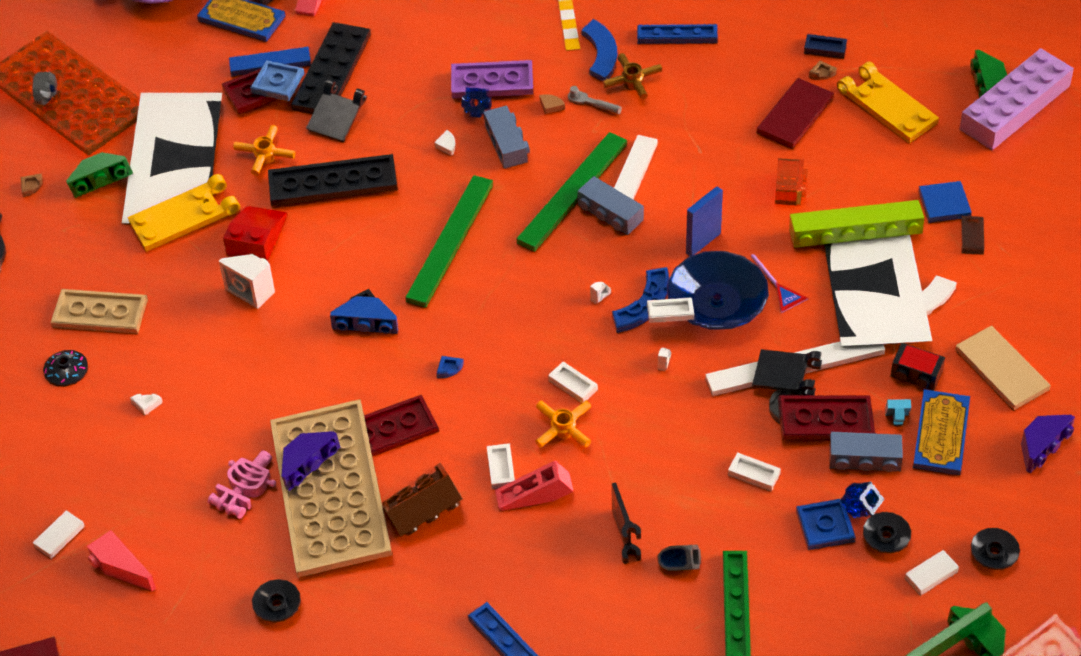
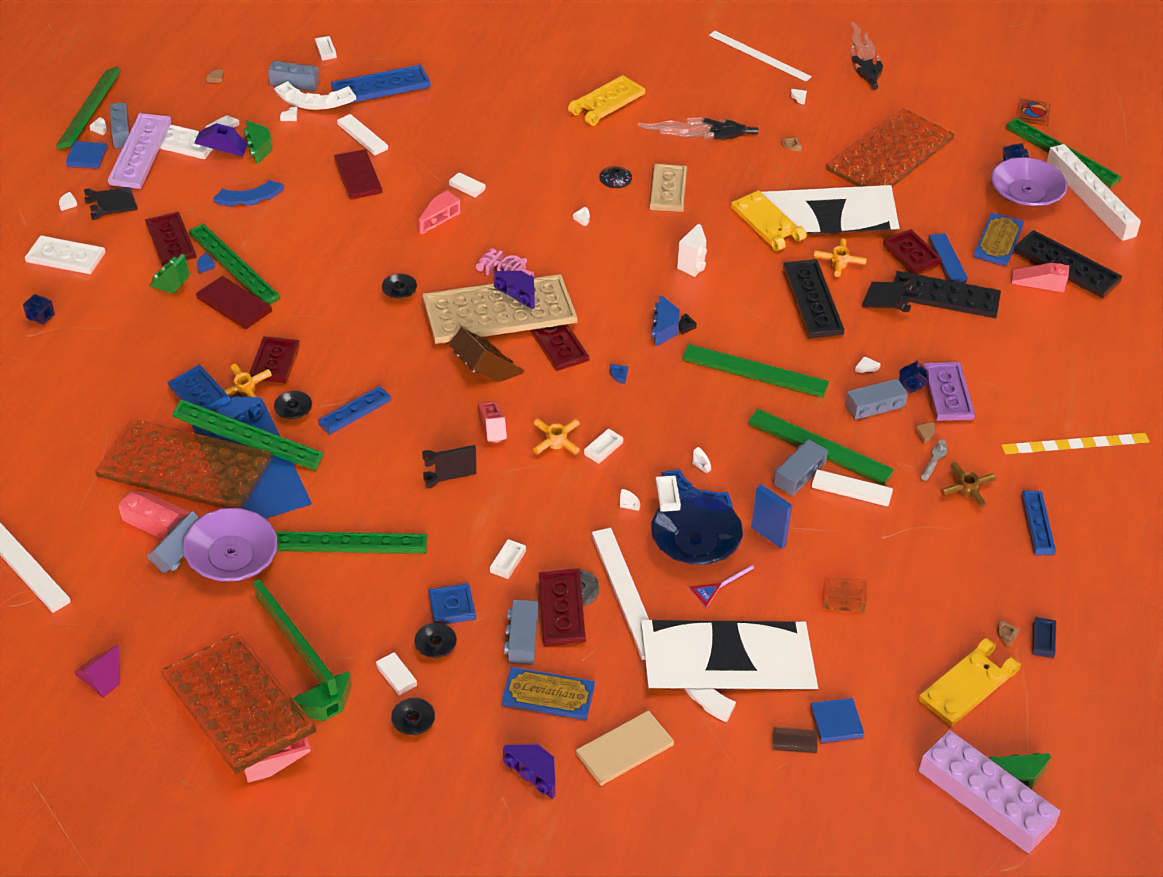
camera: 85 degrees right, 5 degrees down
(44, 87) = (882, 131): dark grey rock -> none
(98, 172) = (801, 170): green slope -> none
(254, 232) = (752, 257): red slope -> none
(277, 80) = (917, 257): medium blue tile -> none
(500, 465) = (519, 403): white tile -> none
(606, 49) = (1004, 470): blue tile -> none
(680, 557) = (418, 506): rock -> none
(786, 371) = (610, 576): black flag -> none
(795, 113) = (943, 608): dark red tile -> none
(856, 223) = (792, 641): lime brick -> none
(861, 499) = (467, 621): clear blue brick -> none
(898, 409) = (568, 658): medium azure tile -> none
(917, 366) = (619, 676): brick -> none

